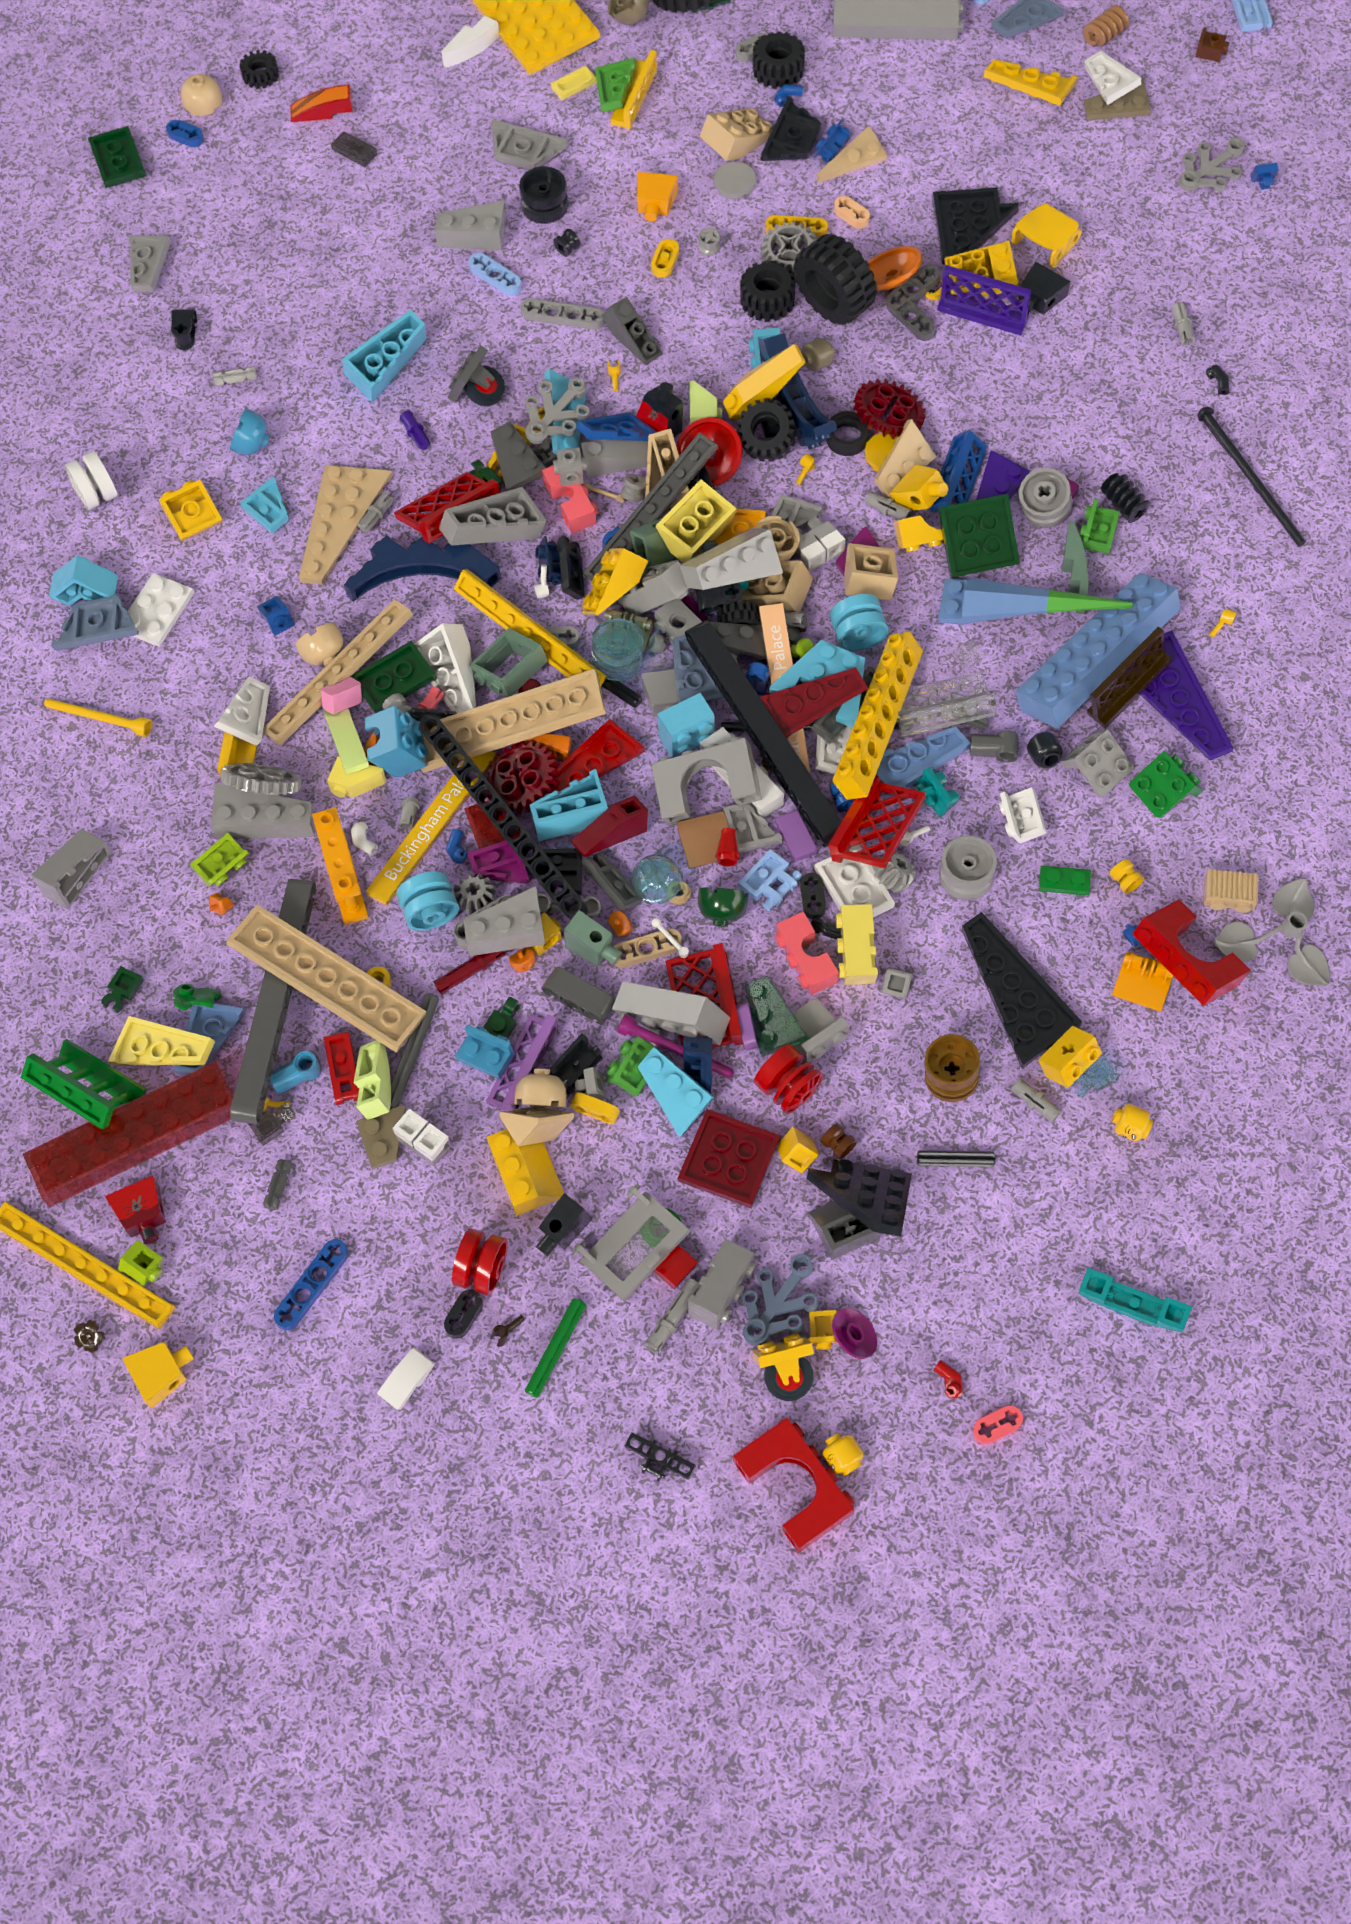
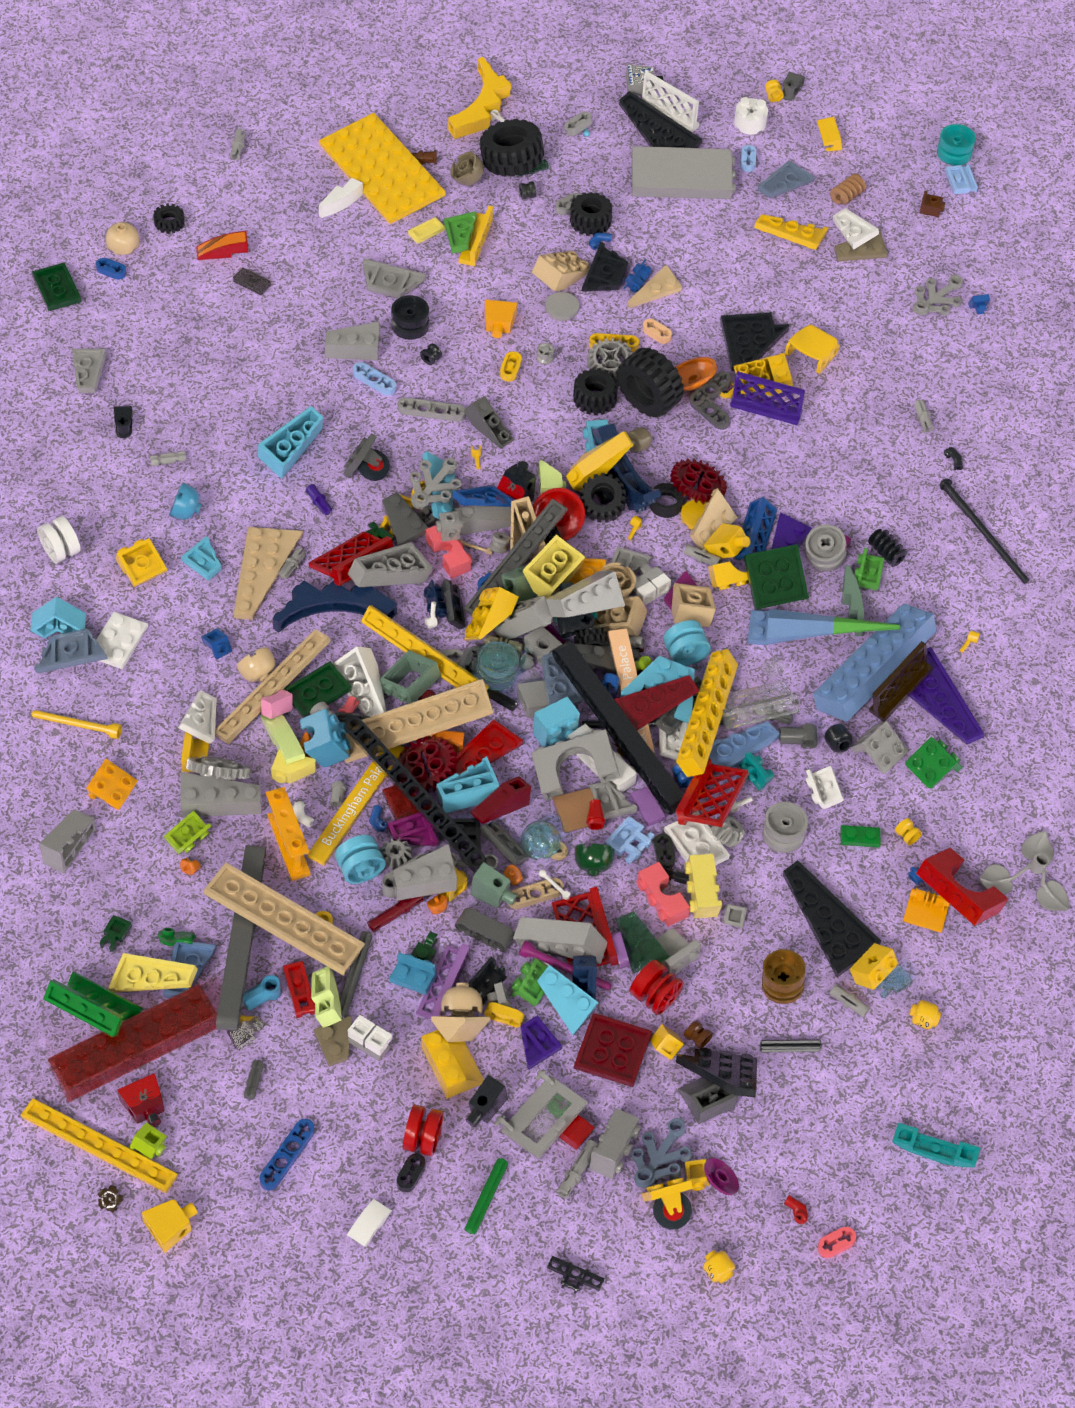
camera: 10 degrees left, 10 degrees down
(132, 796) = (111, 784): none -> light orange hinge
(503, 1331) = (444, 1184): dark brown hand -> none
(582, 642) = (466, 659): none -> dark grey beam
(635, 1145) = (538, 1042): none -> dark purple wing
(702, 30) = (527, 190): none -> pearl dark grey wheel
(785, 1445) = (674, 1262): red arch -> none
(1046, 288) = (816, 389): black torso -> none
(1230, 890) = (989, 840): tan brick -> none

